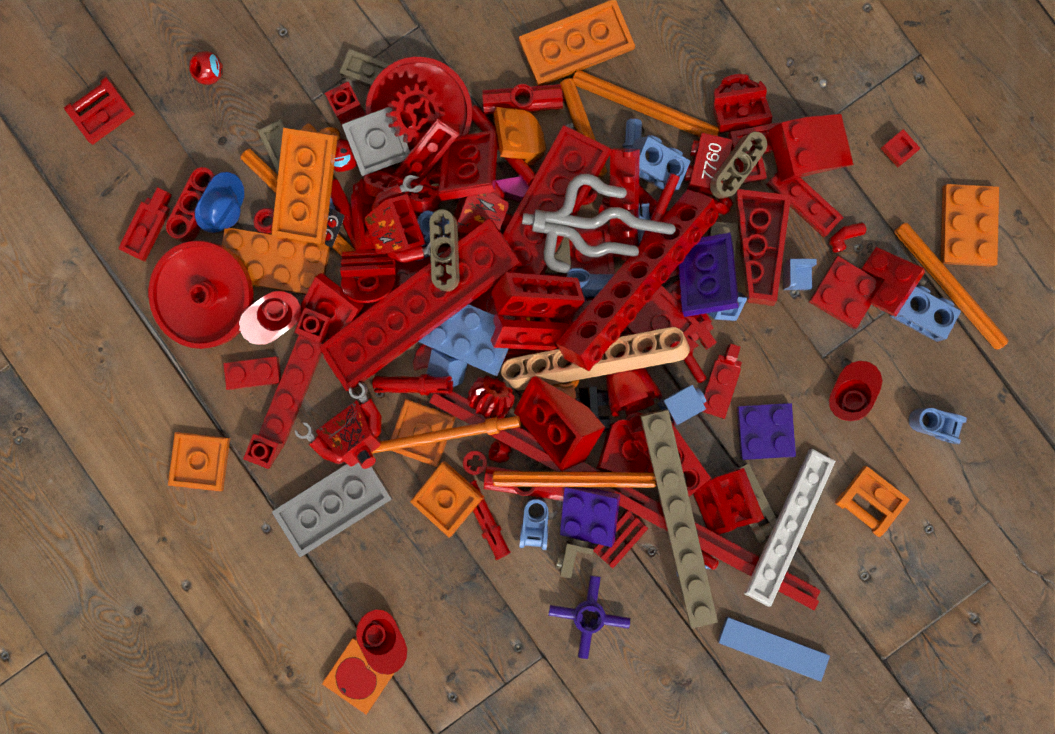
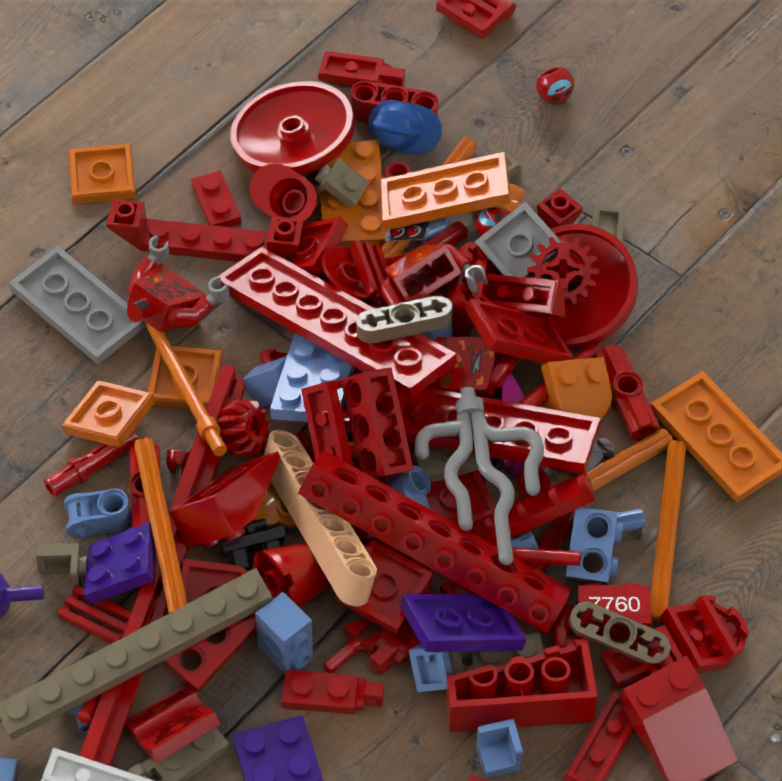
camera: 75 degrees right, 30 degrees down
(271, 268) = (341, 182): none -> dark tan bracket
(421, 384) = (241, 353): red pin -> none
(480, 469) = (165, 429): red bush -> none

